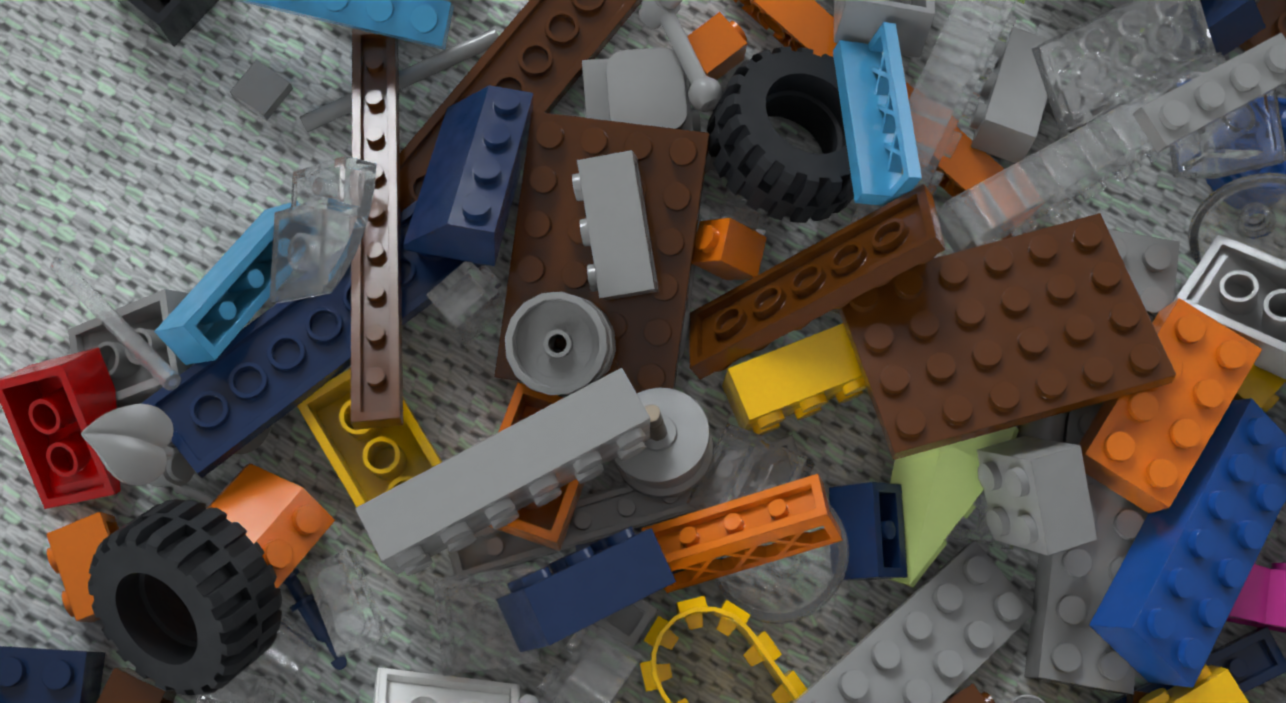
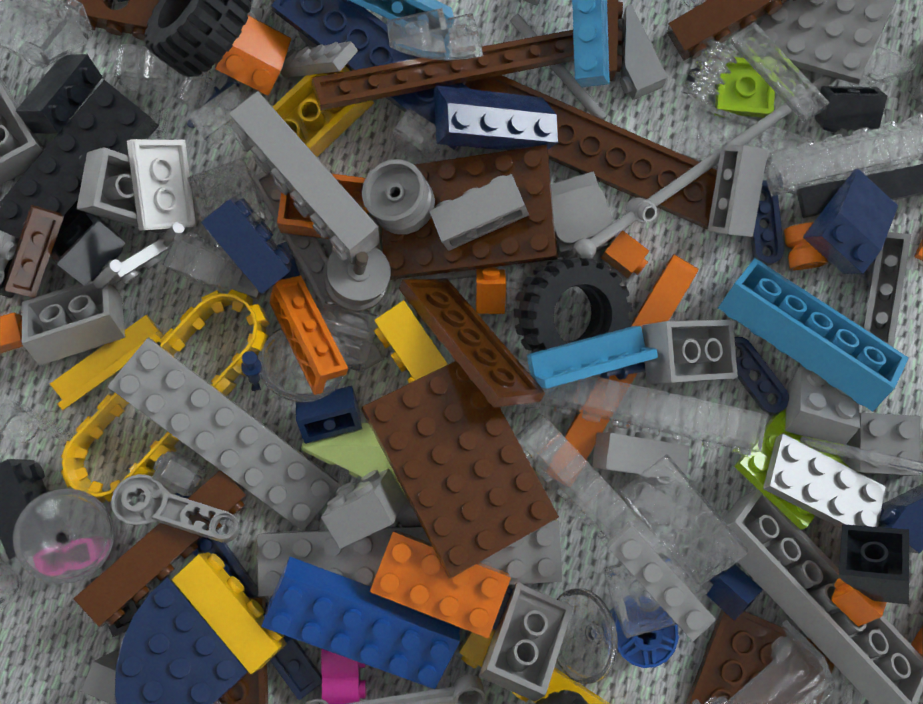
camera: 80 degrees right, 5 degrees up
(308, 415) = (318, 59): none -> light grey plate
(779, 631) = (252, 367): none -> dark blue piece

